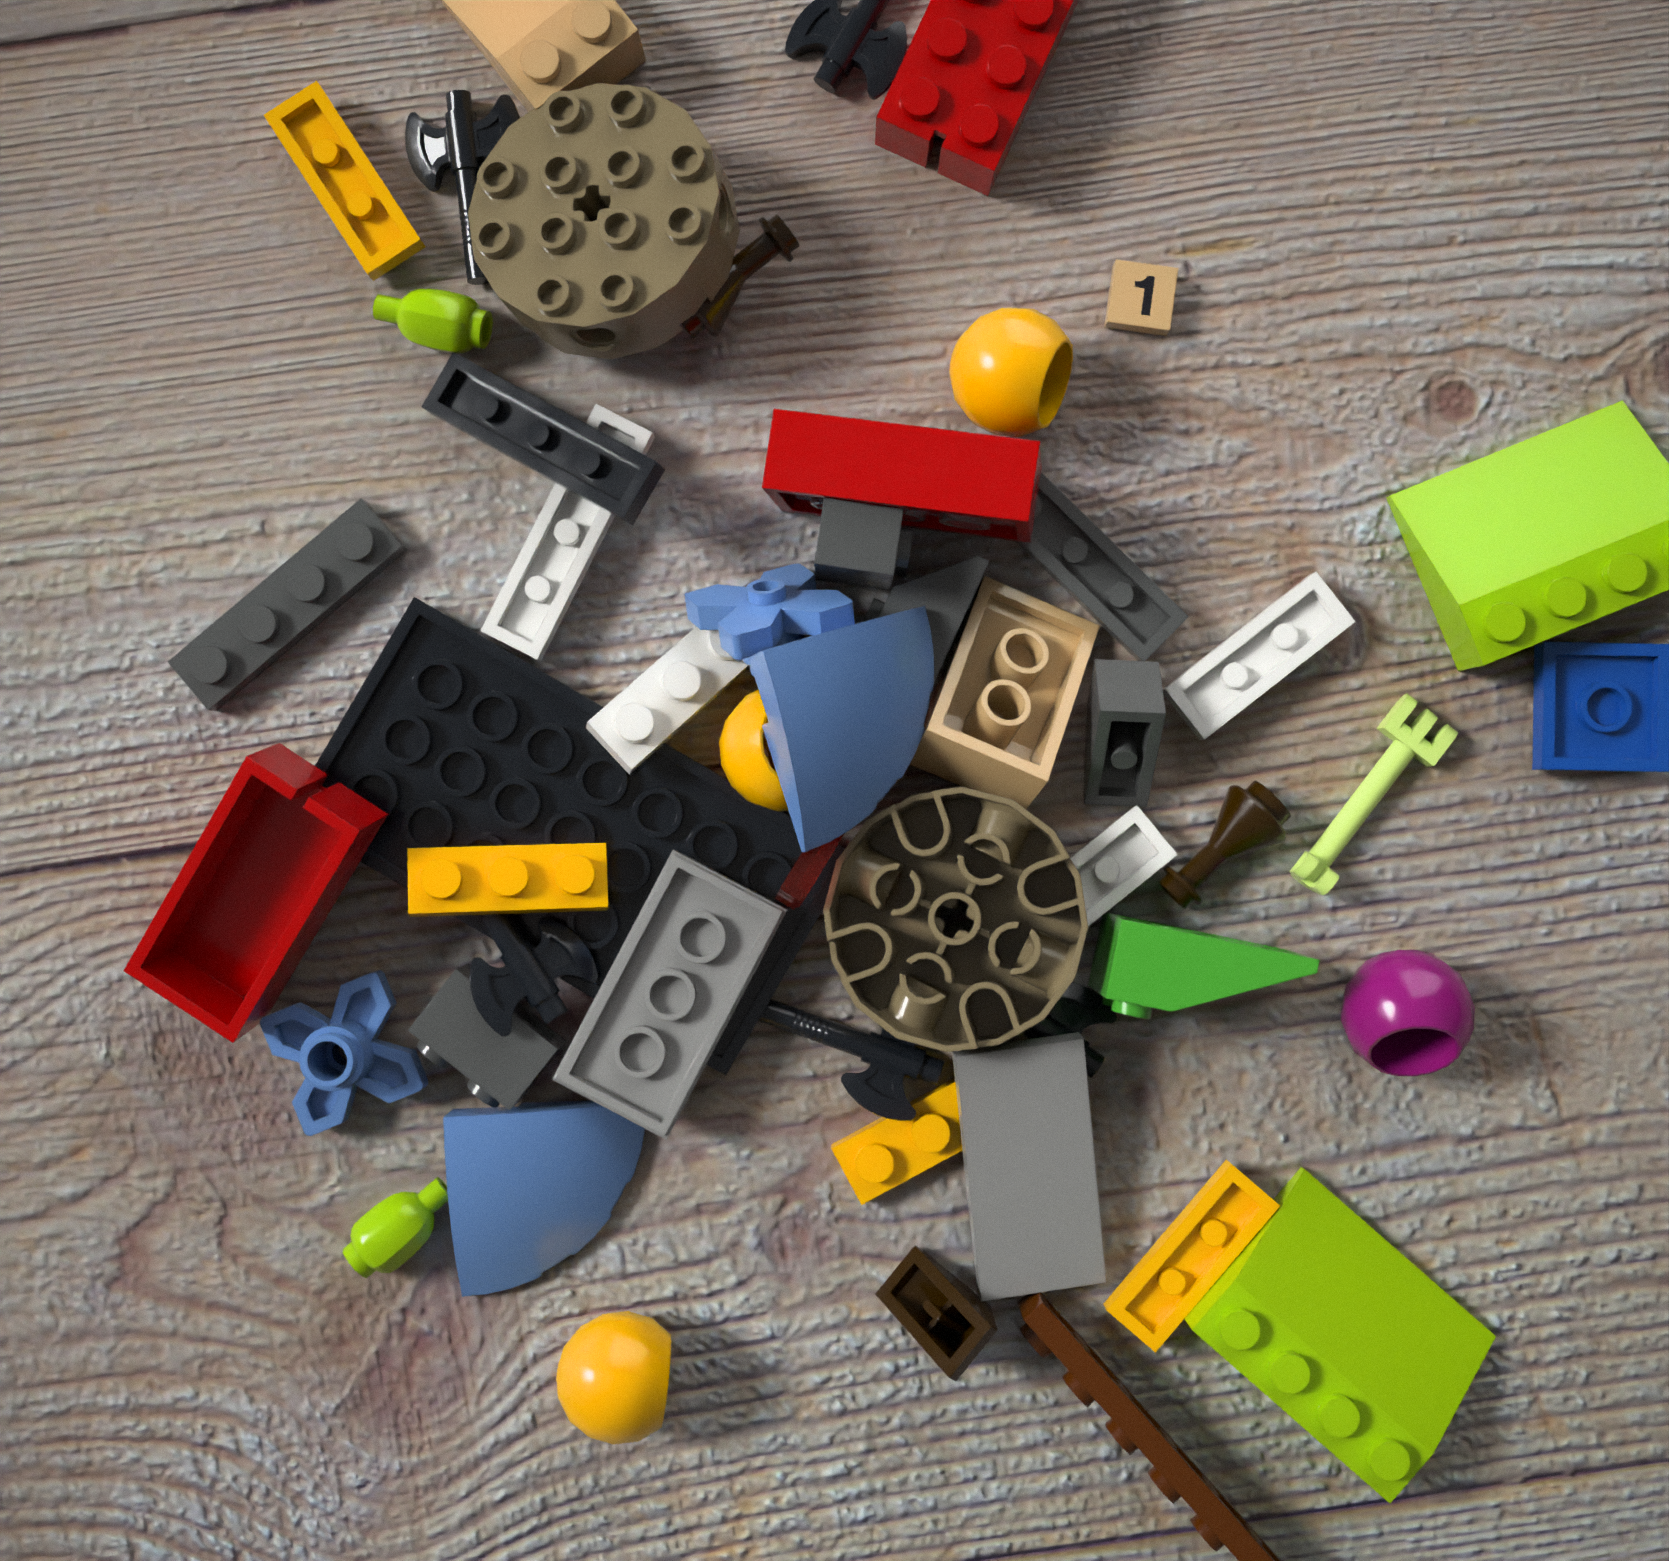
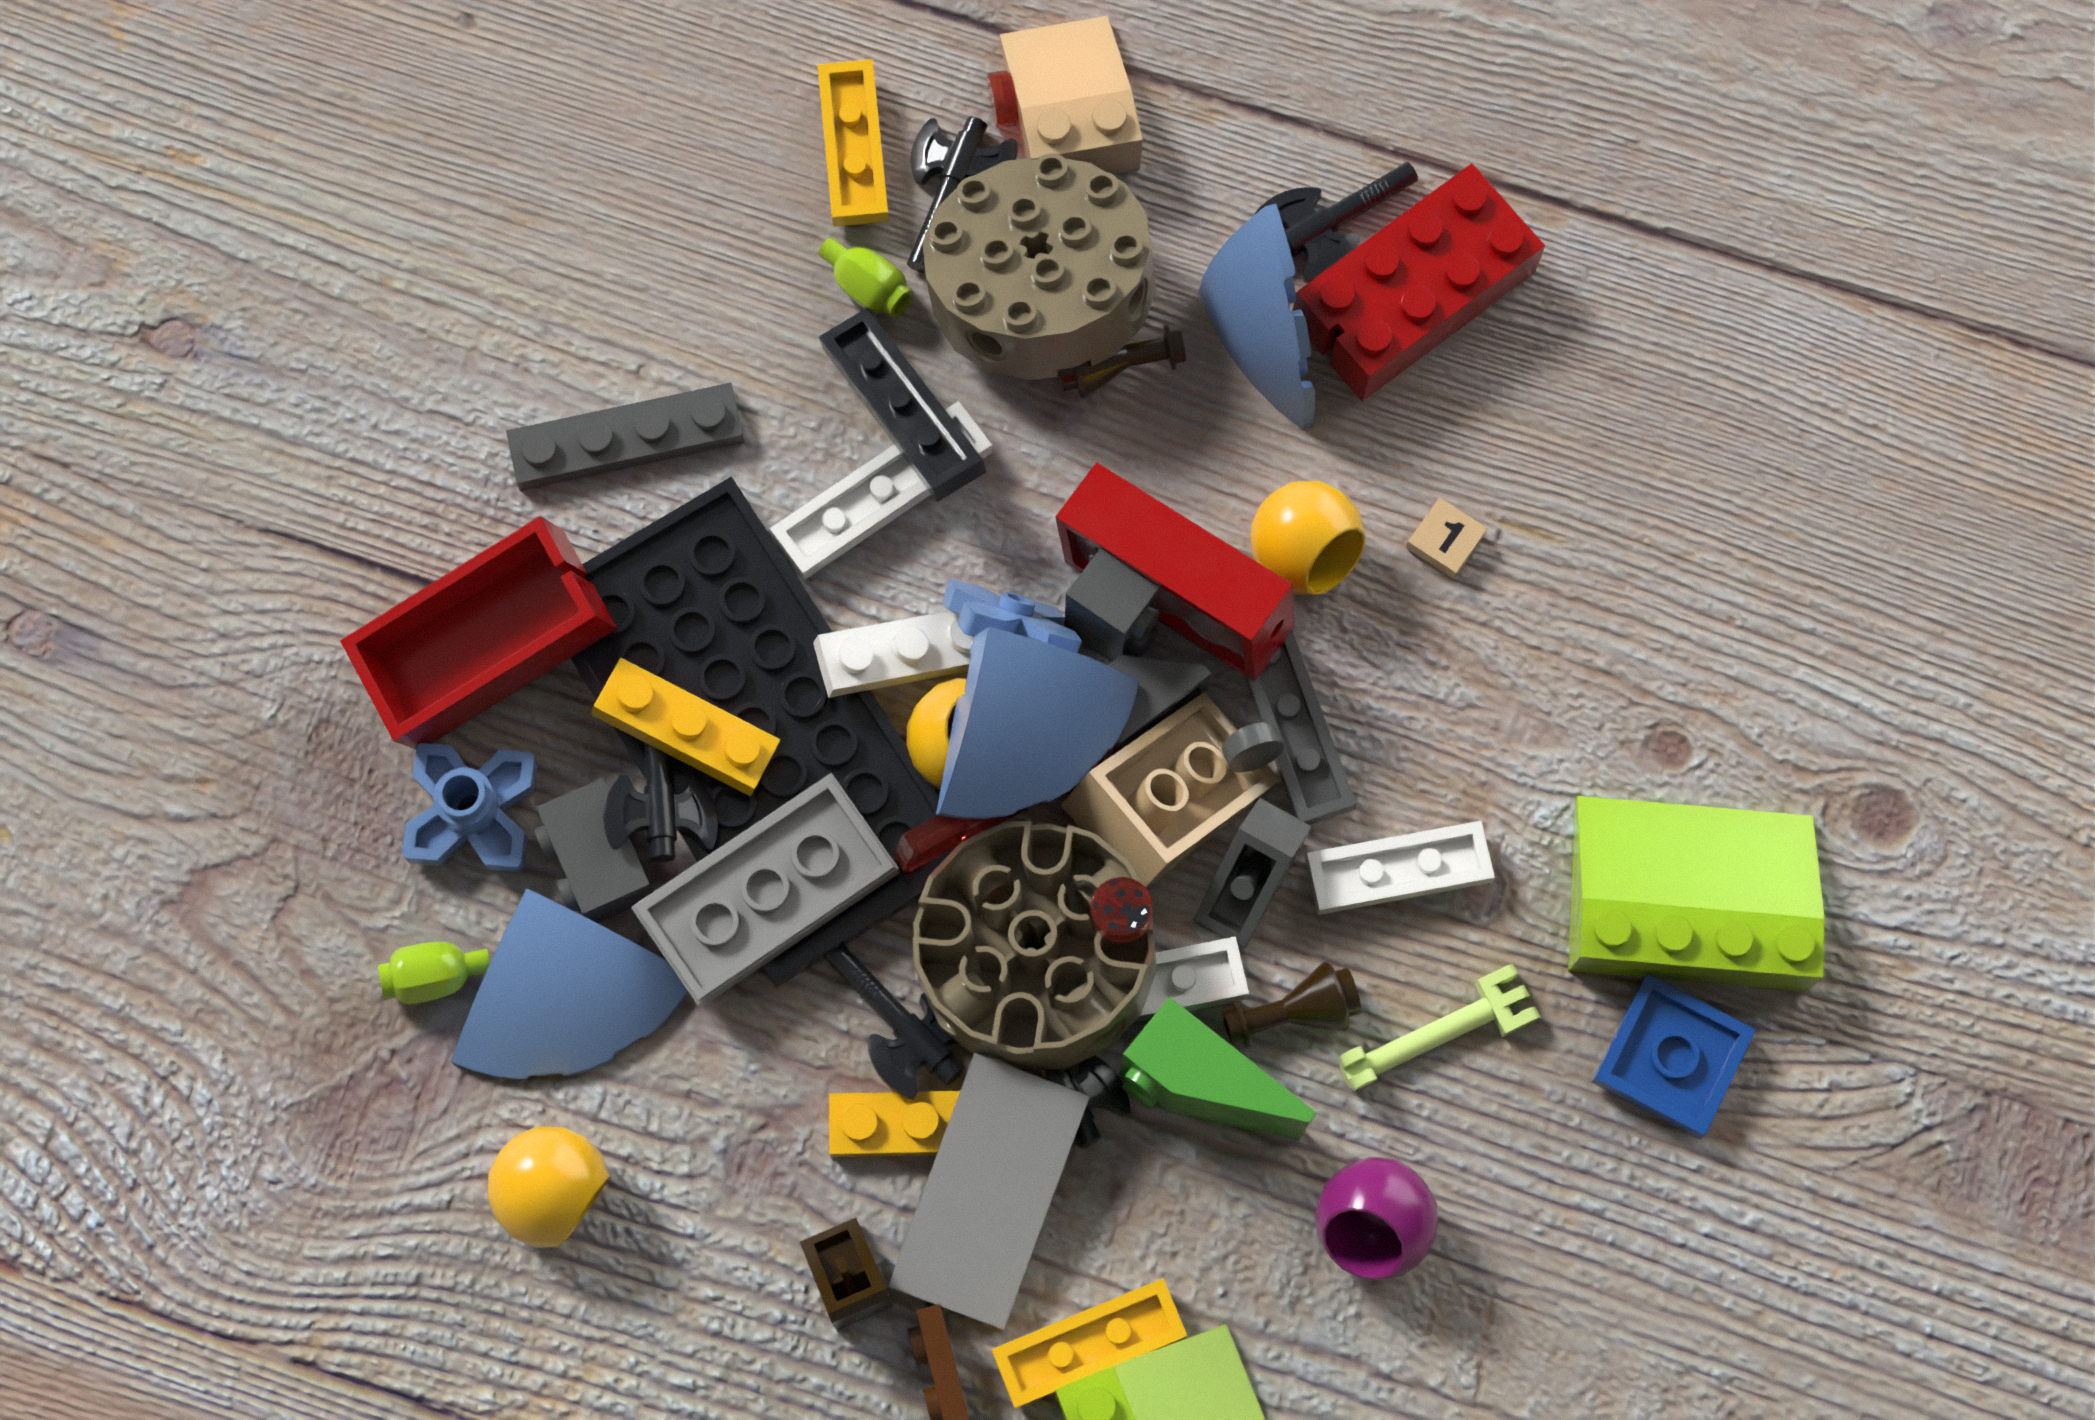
camera: 20 degrees right, 15 degrees down
(470, 56) = (1002, 99): none -> clear red tile
(837, 154) = (1248, 306): none -> medium blue brick
(1032, 855) = (1121, 909): none -> clear red tile
(1064, 613) = (1252, 747): none -> dark grey tile

